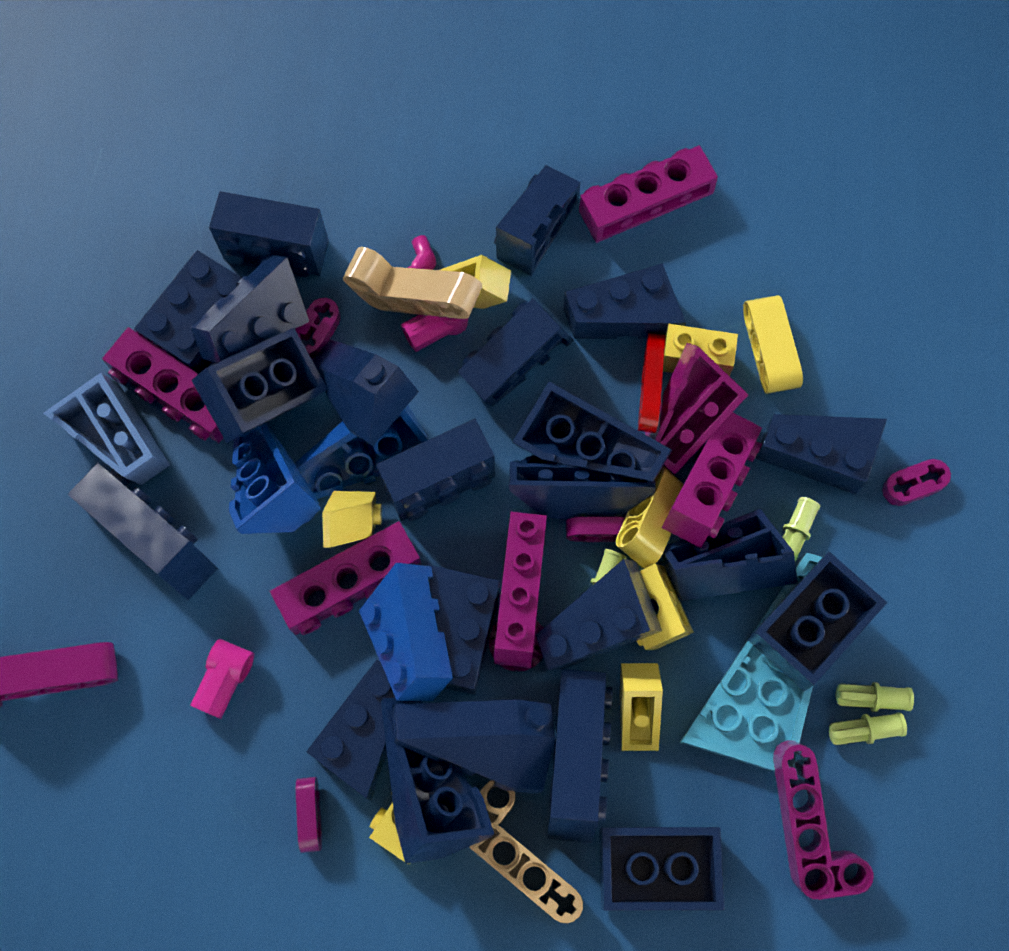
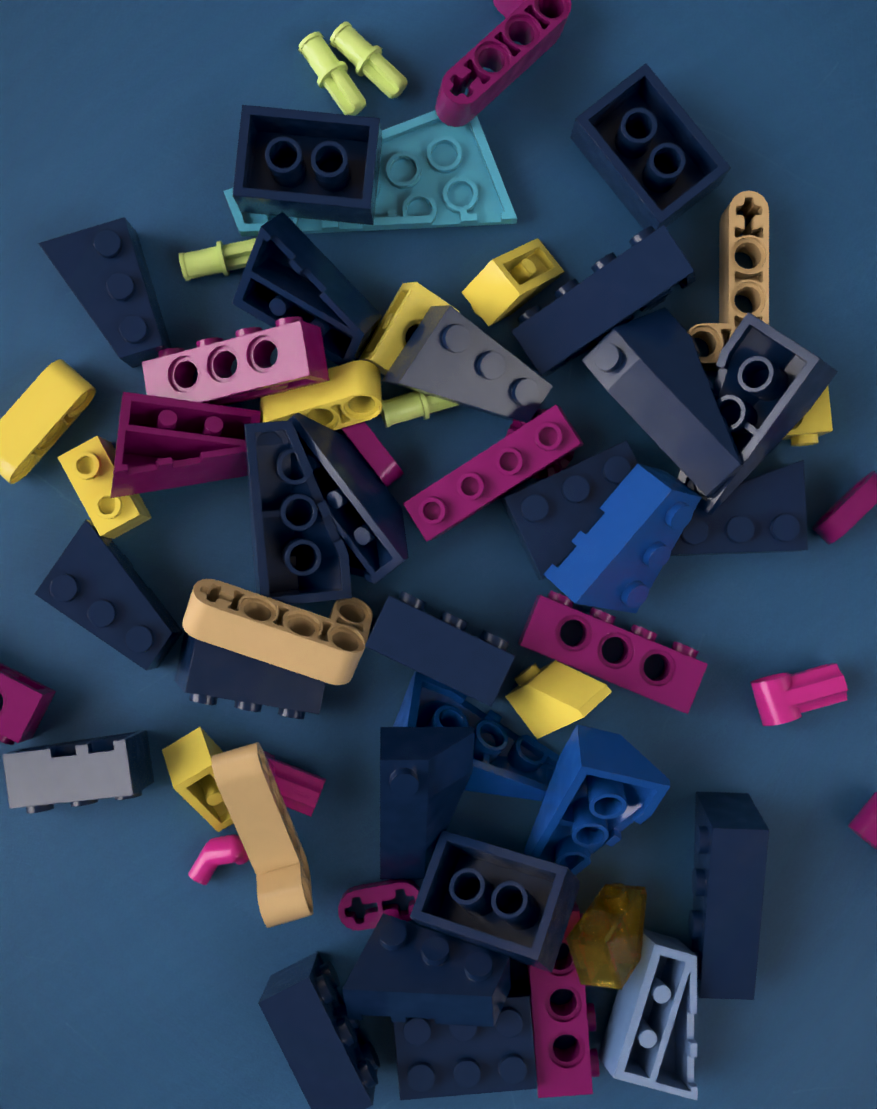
camera: 125 degrees left, 15 degrees up
(180, 438) = (609, 936): none -> clear yellow slope
(524, 380) = (280, 632): none -> tan beam
(651, 383) = (180, 504): red beam -> none
(913, 475) = (84, 172): magenta beam -> none

